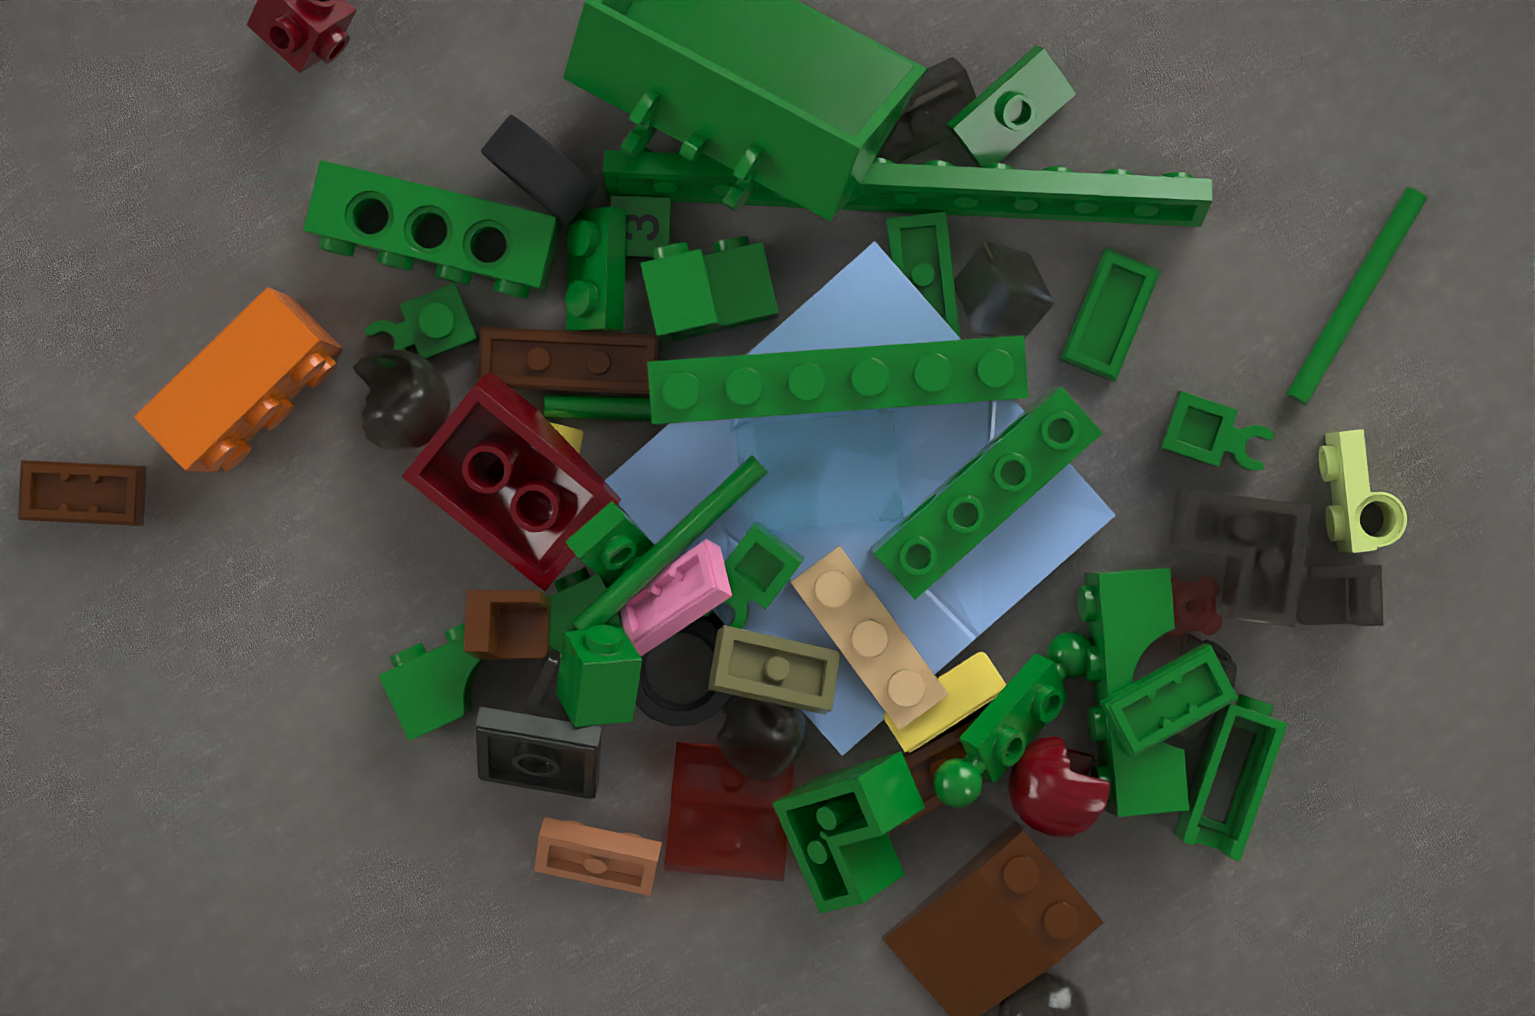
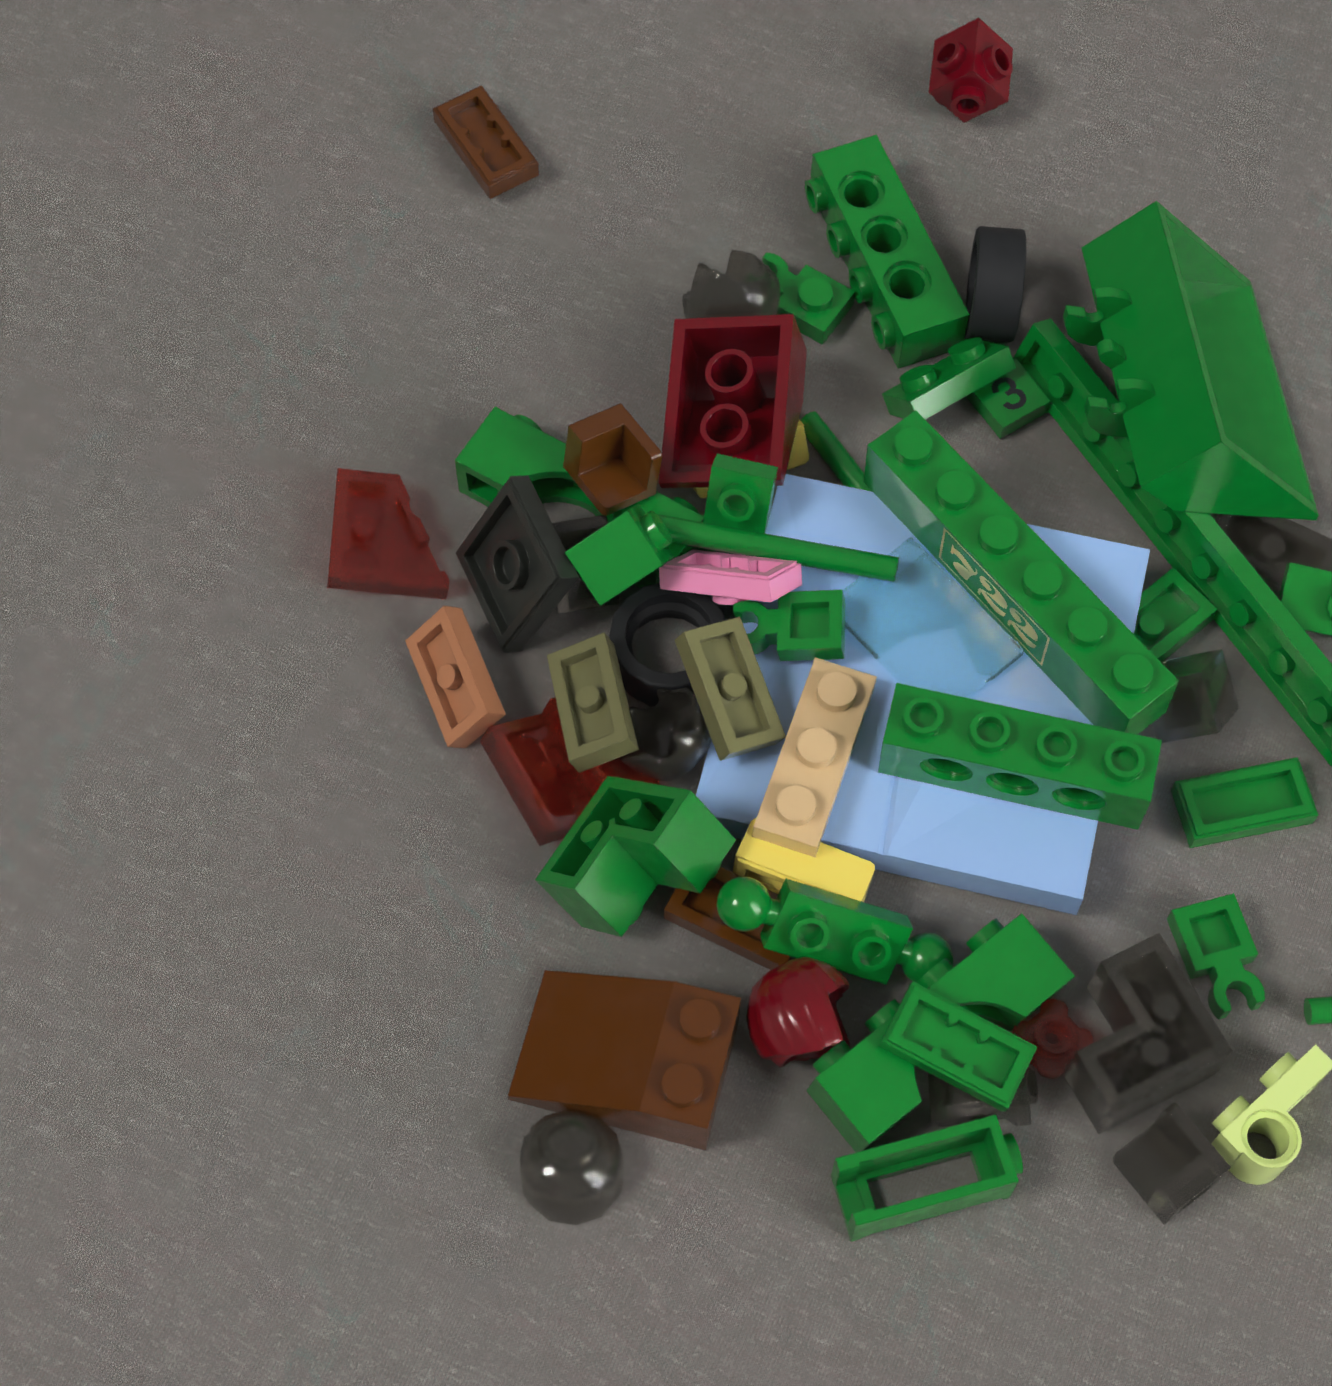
camera: 60 degrees right, 25 degrees down
(240, 384) = (659, 178): orange brick -> none
(427, 835) = (380, 540): none -> clear red wing
(568, 359) = (846, 396): reddish brown tile -> none
(702, 774) = (592, 702): none -> olive plate
(708, 292) = (991, 433): green brick -> none

